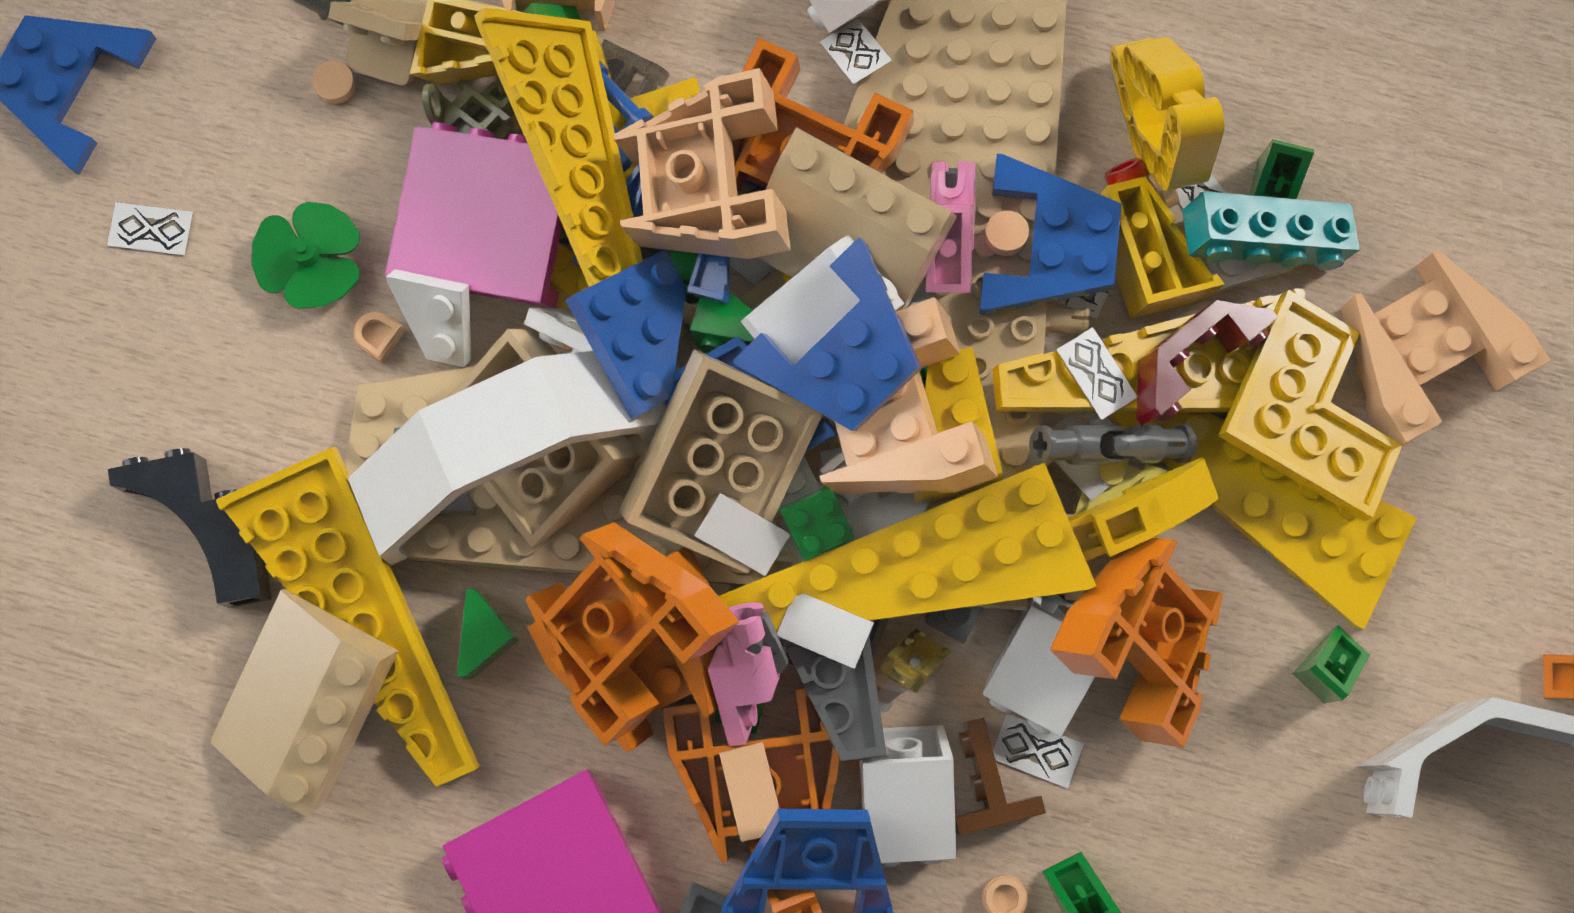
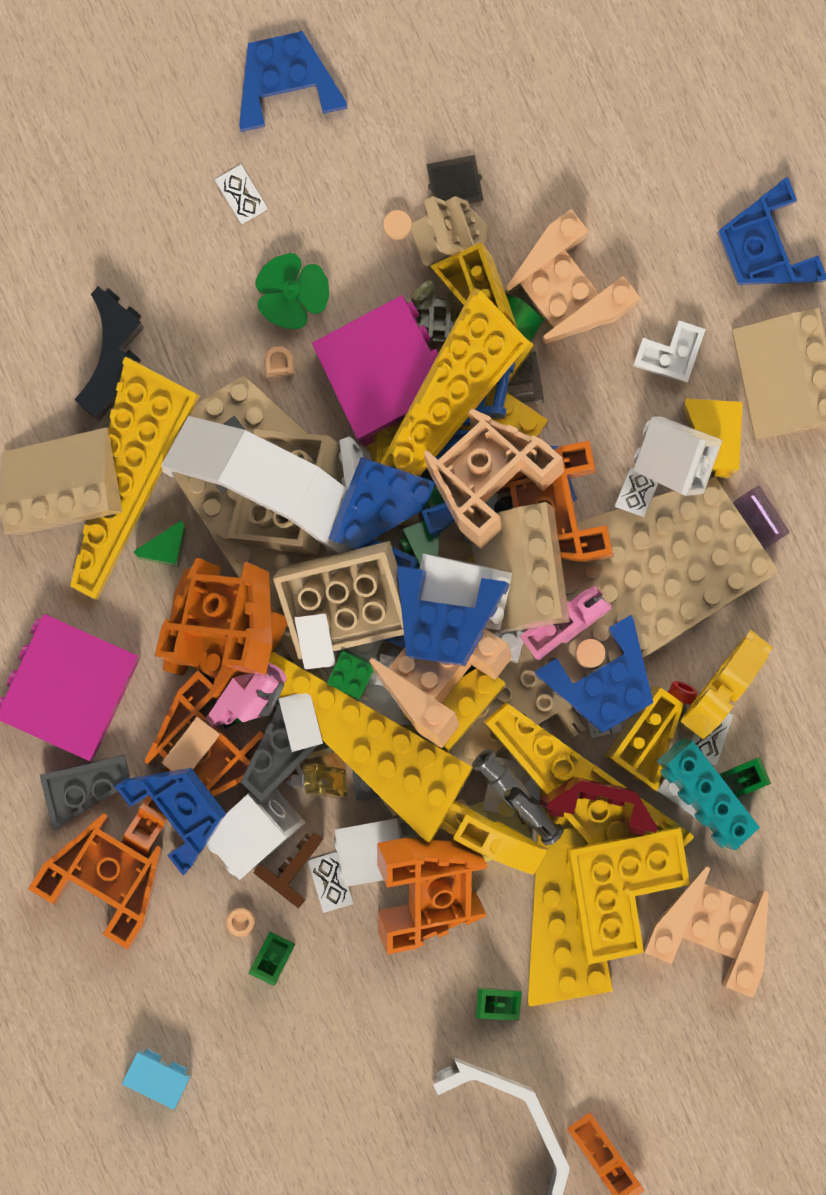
camera: 50 degrees right, 5 degrees up
(436, 314) = (311, 387): white wing -> none
(1097, 373) = (547, 759): white sticker -> none

